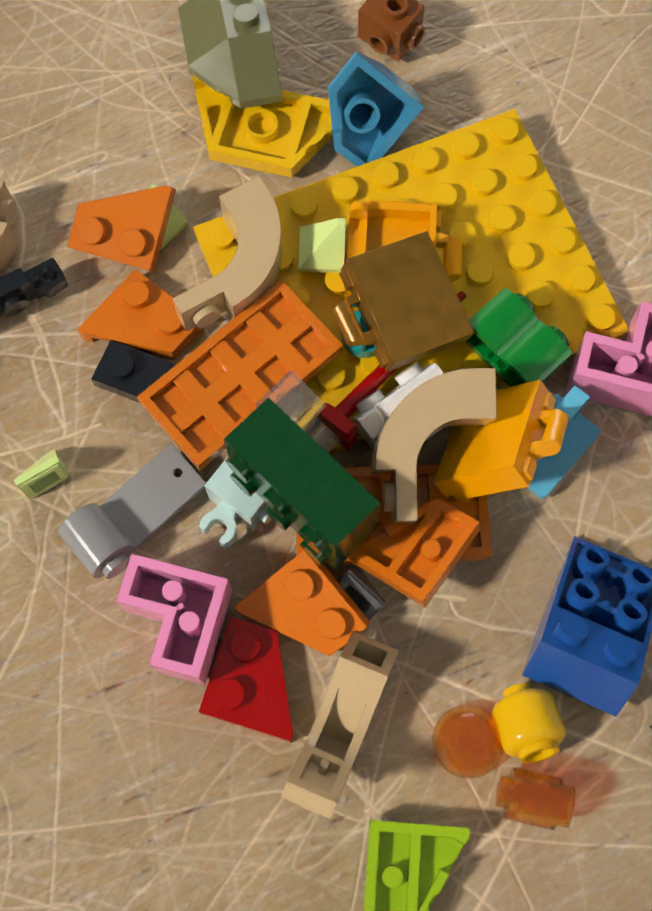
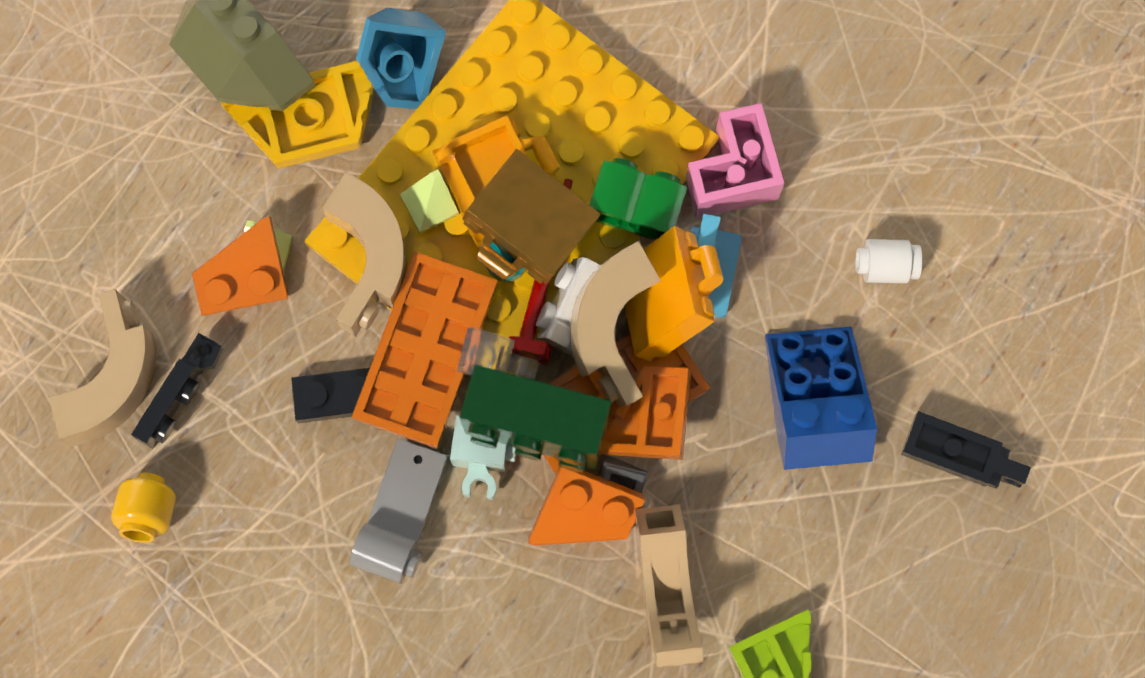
camera: 30 degrees left, 5 degrees up
(42, 475) = (304, 522): yellowish green slope -> none
(140, 318) = (303, 344): orange wing -> none
(190, 609) = (491, 561): bright pink brick -> none
(249, 682) = (574, 594): red wing -> none
(467, 741) = (769, 544): clear orange piece -> none
(528, 723) = (809, 504): yellow head -> none
(535, 799) = (844, 559): clear orange brick -> none

